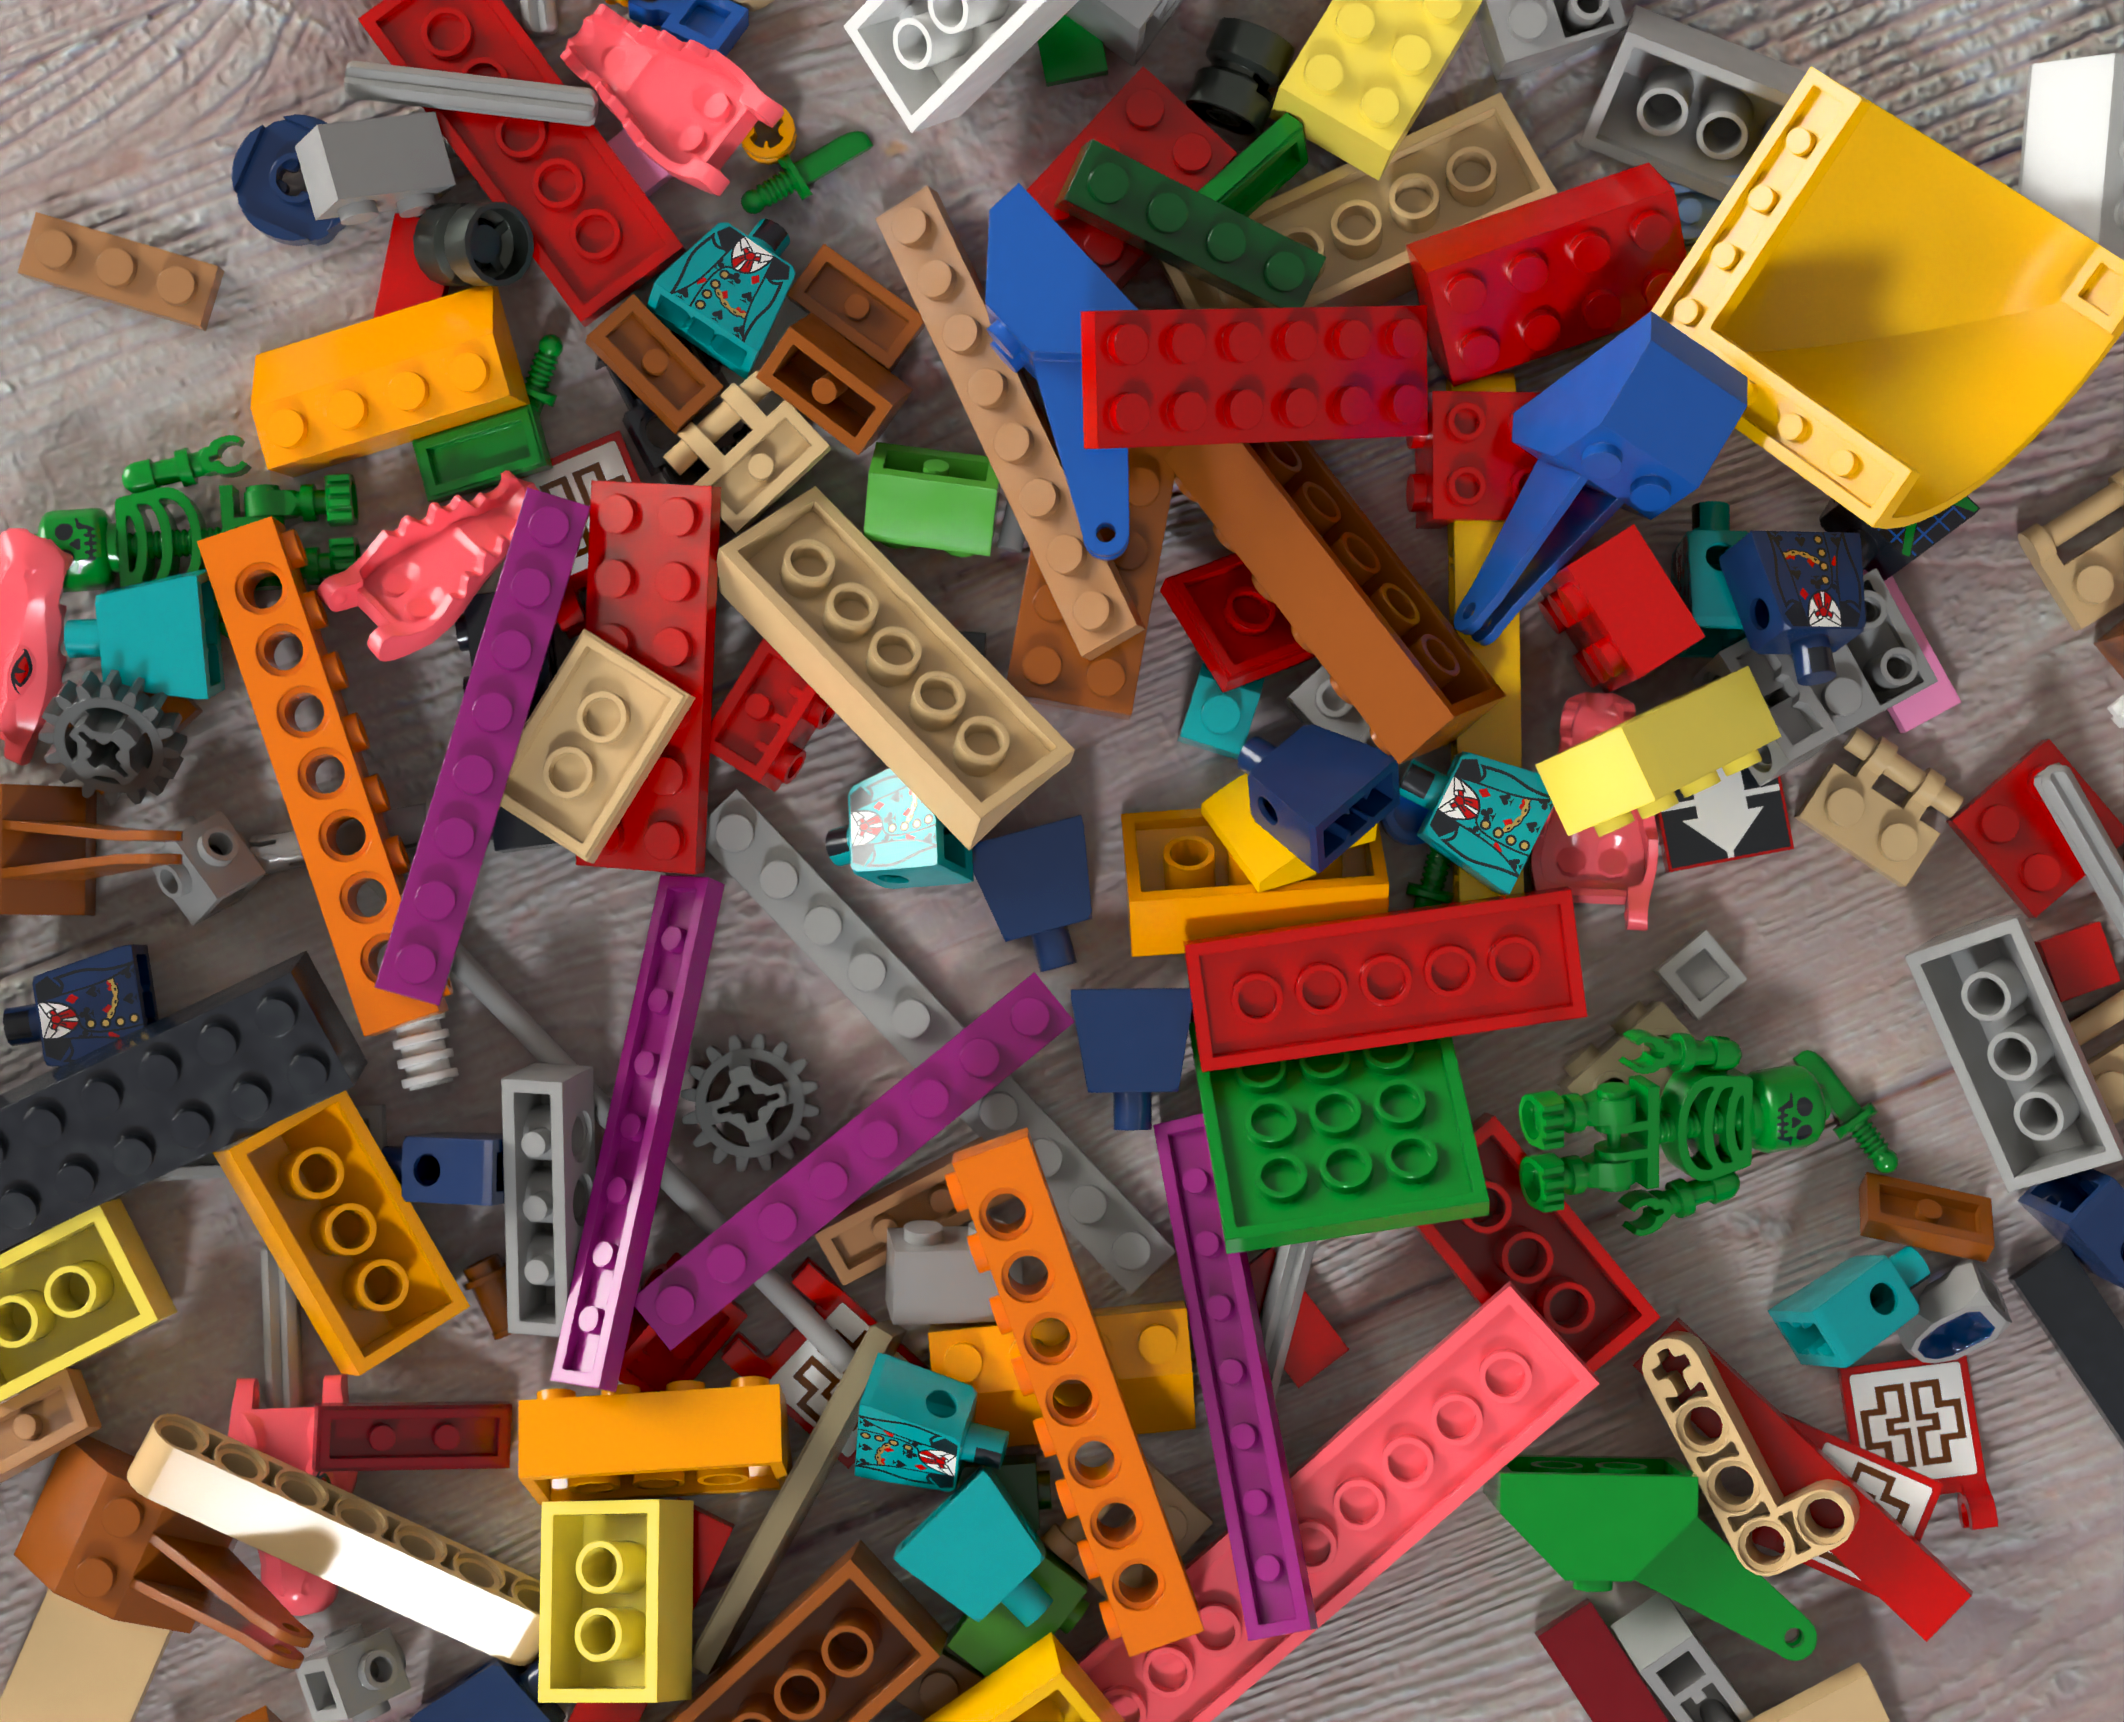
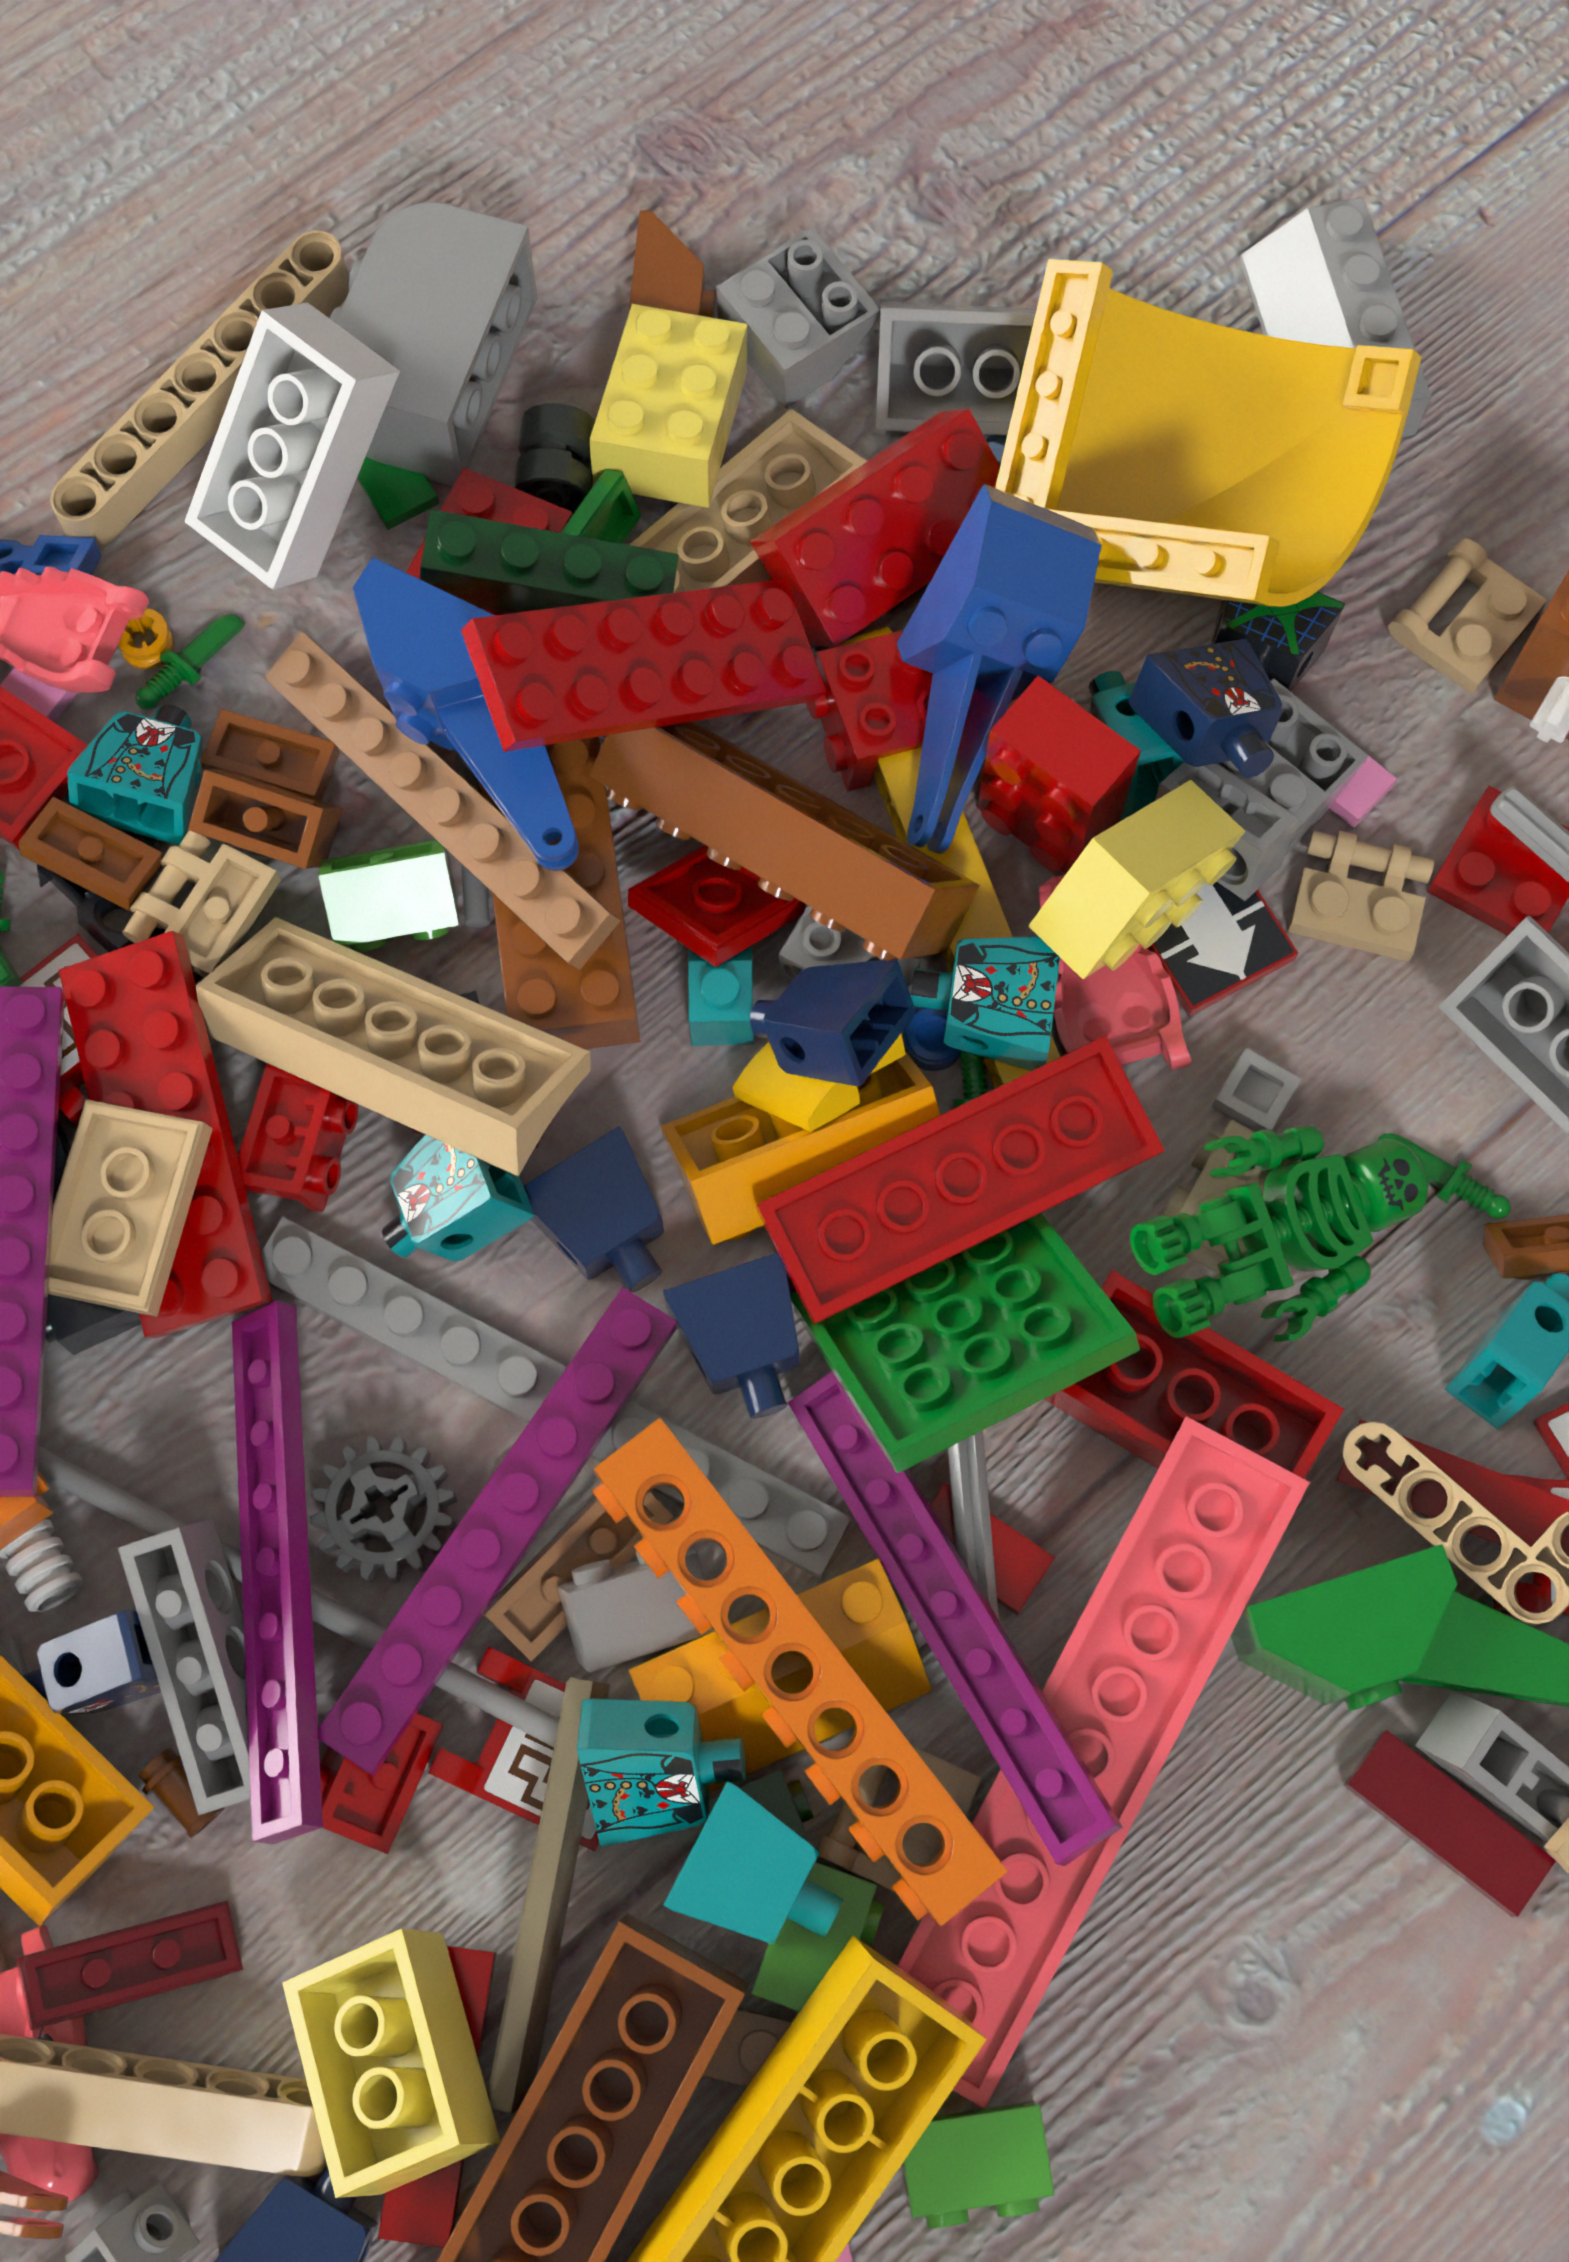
camera: 10 degrees left, 15 degrees down
(654, 1441) = (411, 1867): light orange slope -> none

